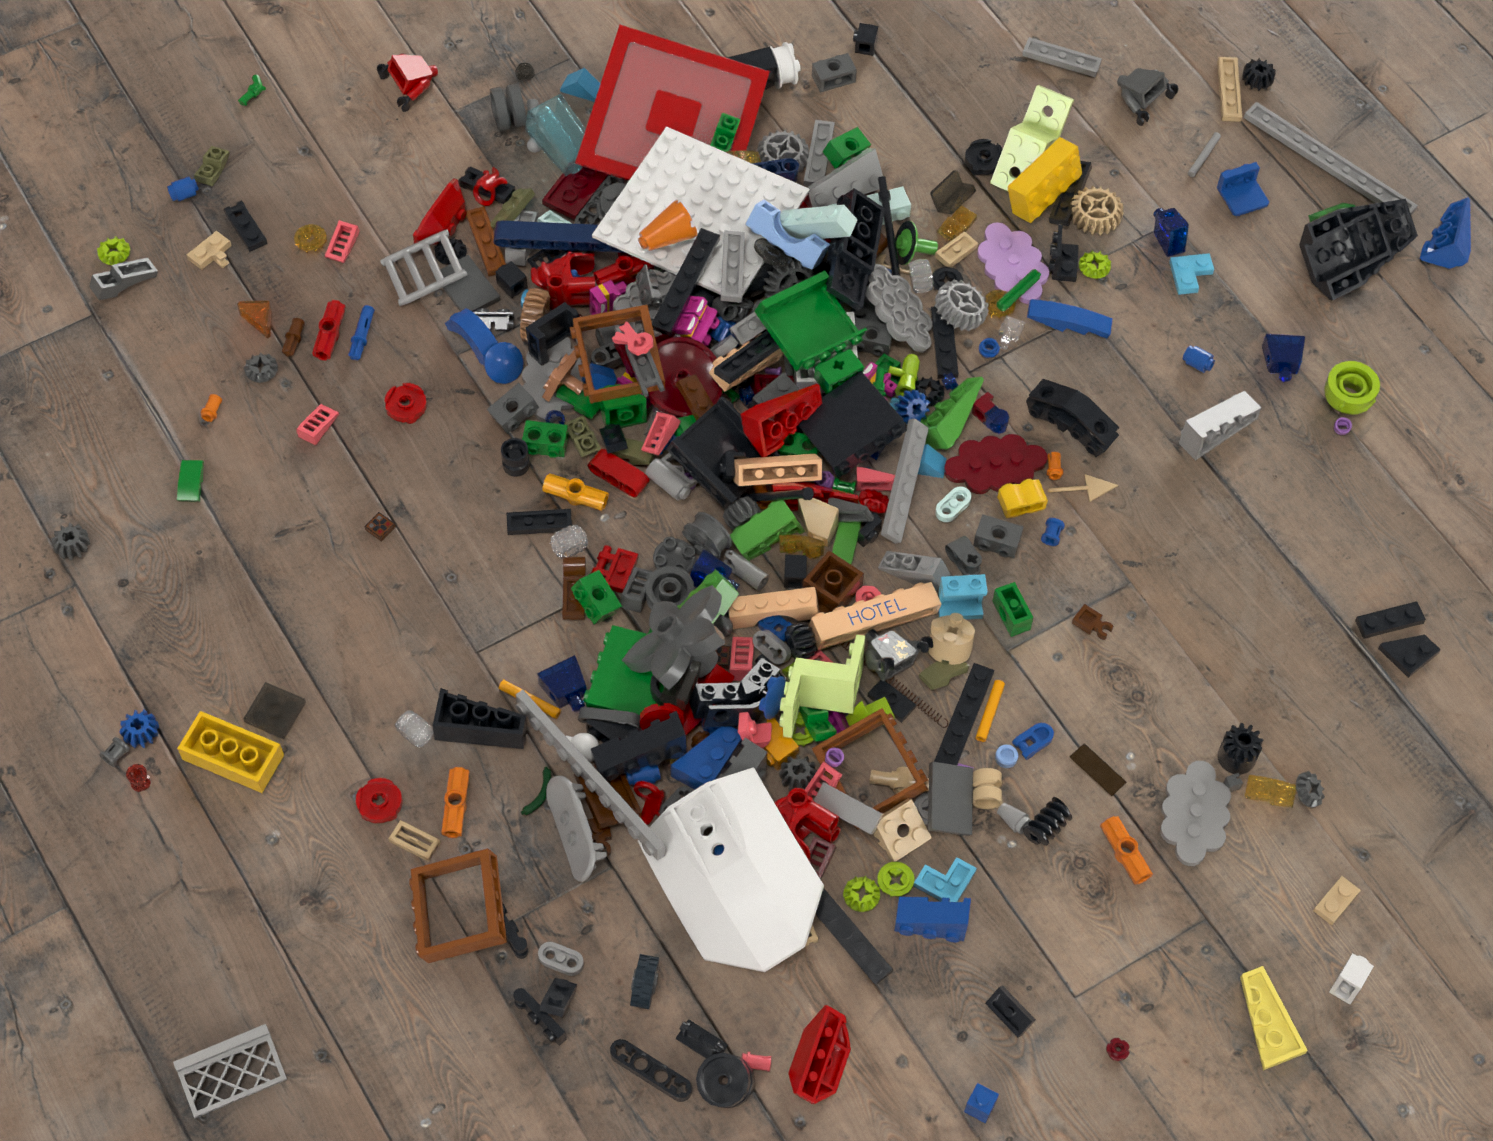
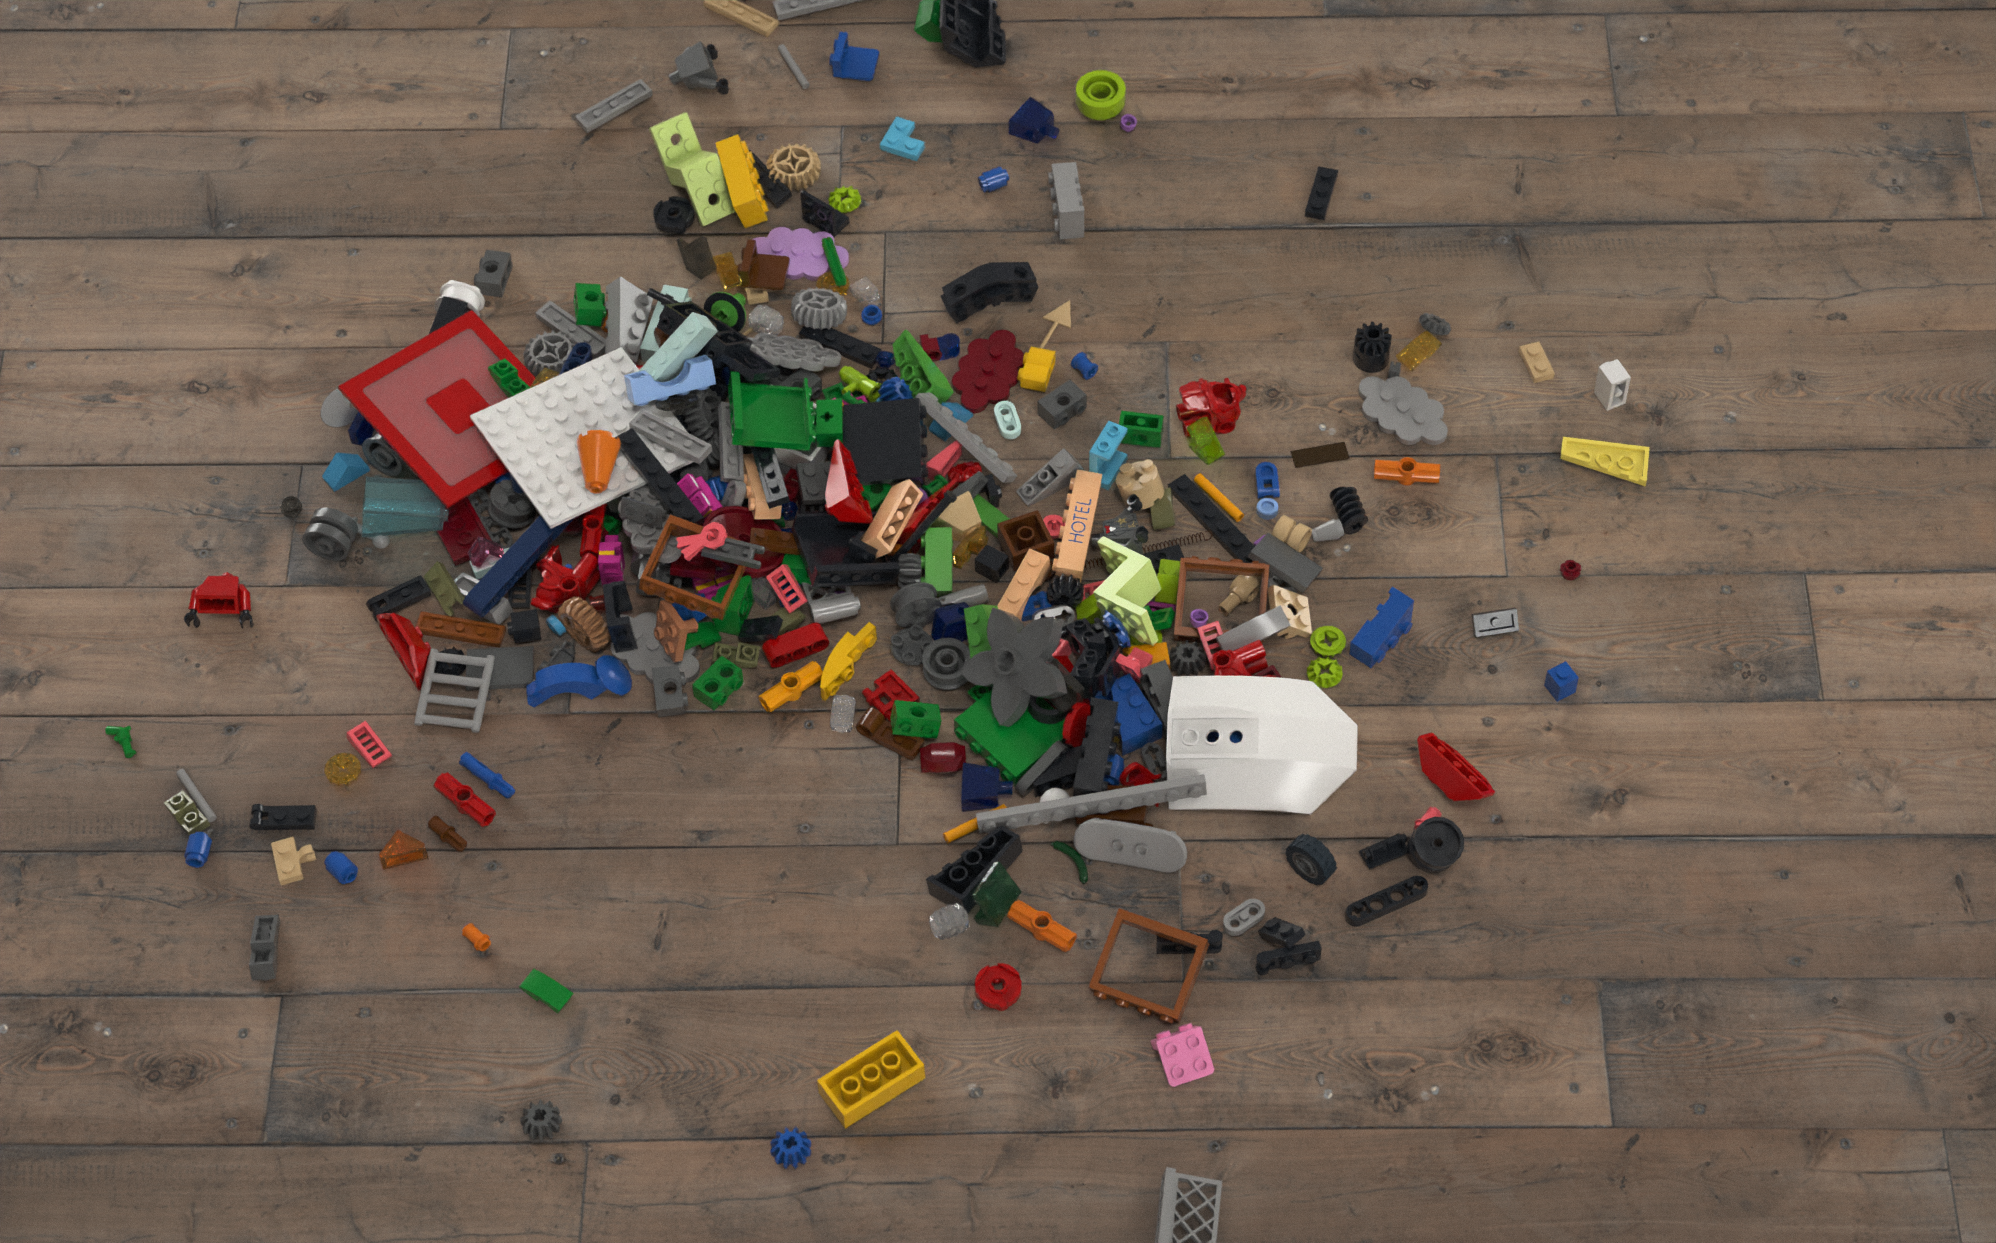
camera: 55 degrees left, 5 degrees down
(113, 257) = (214, 950): lime gear -> none
(114, 752) = (800, 1188): dark grey bush -> none
(139, 776) = (840, 1164): clear red bush -> none
(220, 286) = (341, 867): none -> blue brick
(232, 162) = (196, 795): none -> light grey bar
(267, 372) = (462, 885): dark grey gear -> none
(274, 710) = (848, 1028): clear smoke plate -> none
(315, 436) = (568, 870): coral slope -> none
(380, 526) = (711, 858): tile -> none
(393, 980) = (1183, 1054): none -> bright pink bracket
(400, 843) = (1041, 988): tan tile -> none
(410, 412) = (593, 786): red plate -> none
(455, 747) = (995, 896): none -> clear green bracket
(488, 182) = (401, 591): red piece -> none
(515, 457) = (722, 714): black wheel -> none
(538, 521) = (800, 730): black plate -> none
(557, 413) = (697, 667): clear blue bush -> none
(562, 211) = (482, 548): none -> clear pink panel
(577, 641) = (942, 757): none -> dark red slope
(619, 513) = (842, 658): none -> yellow slope
(634, 601) = (935, 696): dark grey slope -> none
(852, 939) = (1371, 697): black plate -> none
(865, 39) = (477, 231): black brick -> none
(948, 272) = (778, 302): black gear -> none
(949, 885) = (1358, 606): medium azure plate -> none
(964, 556) = (1062, 436): dark grey piece -> none
(968, 242) = (762, 270): none -> reddish brown bracket
(1038, 667) = (1205, 441): none -> clear neon green slope
(1054, 466) = (1022, 331): orange pin -> none
(1067, 316) = (886, 242): blue slope -> none
(1073, 648) = (1211, 400): none -> red helmet
(1089, 620) = (1177, 382): reddish brown plate -> none
(1171, 231) = (856, 127): clear blue torso -> none
(1410, 653) = (1359, 197): black wing -> none

